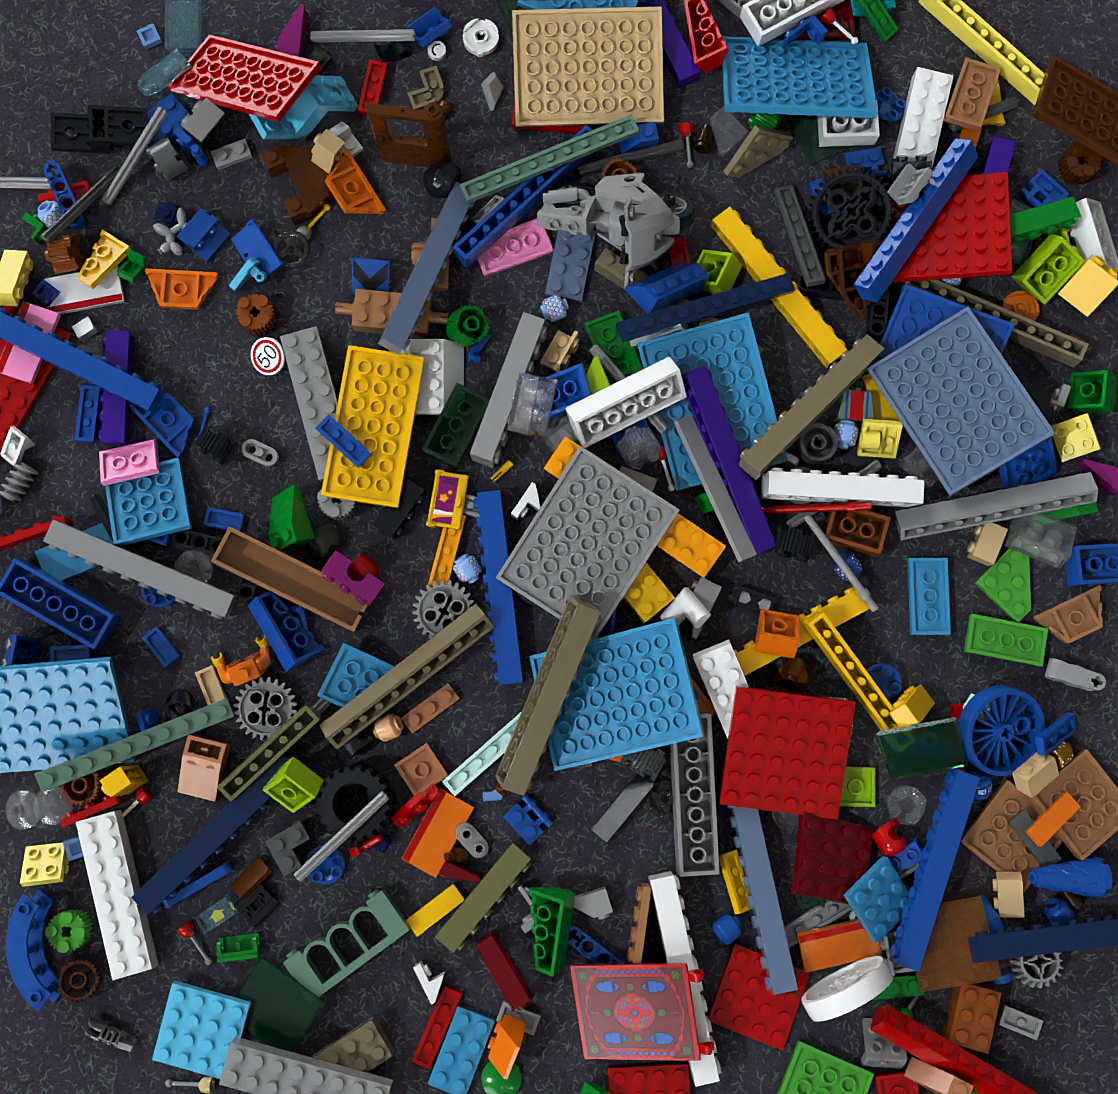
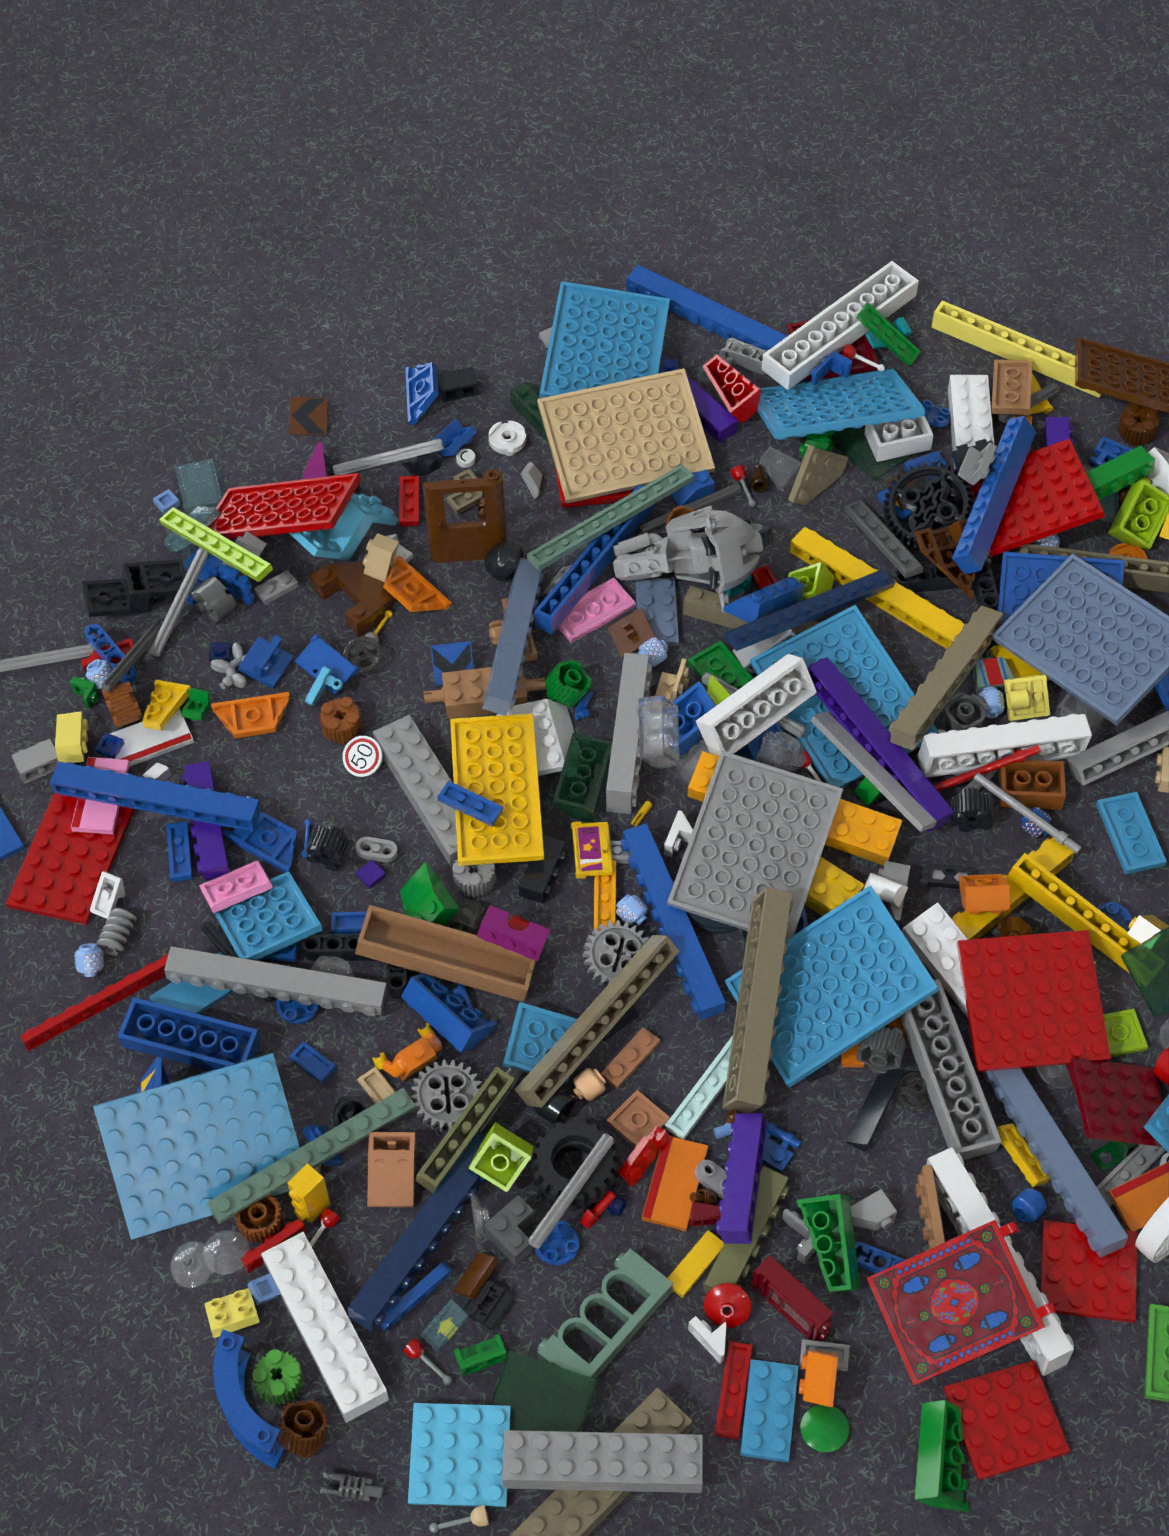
camera: 10 degrees left, 25 degrees down
(174, 107) = (216, 544): none -> lime plate
(250, 475) = (370, 874): none -> dark purple tile
(262, 830) = (480, 1216): none -> clear dish
(449, 958) = (727, 1296): none -> red dish
(490, 854) = (742, 1178): none -> dark purple brick
(540, 282) = (631, 632): none -> reddish brown piece

